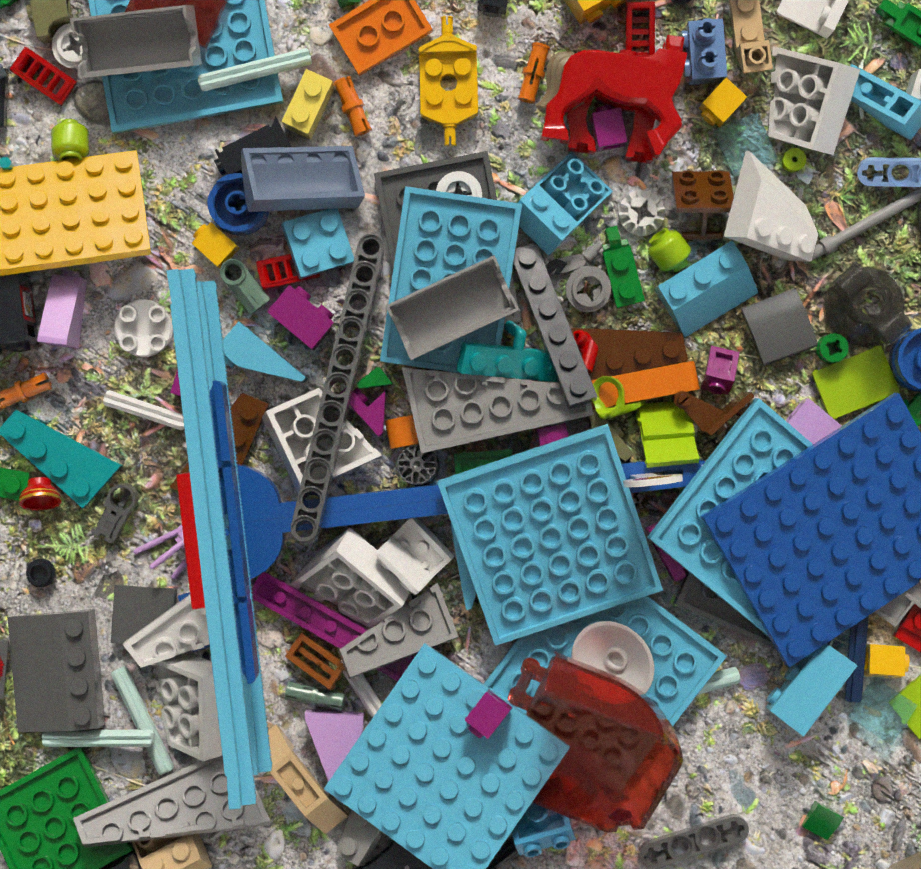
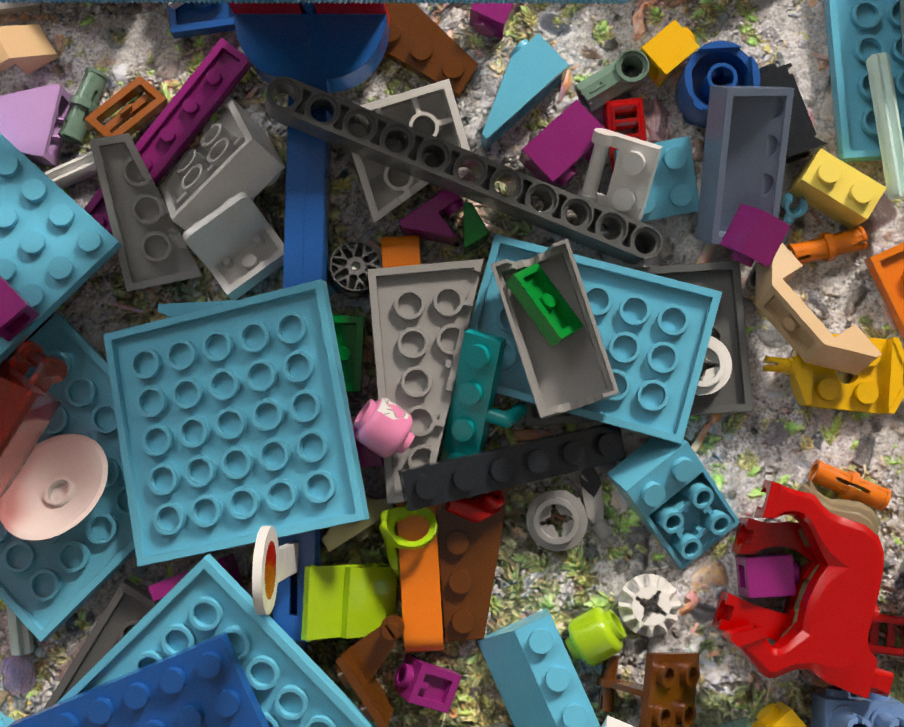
camera: 90 degrees right, 5 degrees down
(321, 263) = (631, 174): none -> white plate
(329, 135) = (791, 214): none -> medium azure hand
(356, 165) = (754, 236): none -> magenta brick
(433, 317) = (544, 304): none -> green plate
(436, 87) = (800, 327): none -> tan slope
(539, 423) = (384, 427): none -> bright pink head
(621, 270) = (576, 568): green hinge -> none

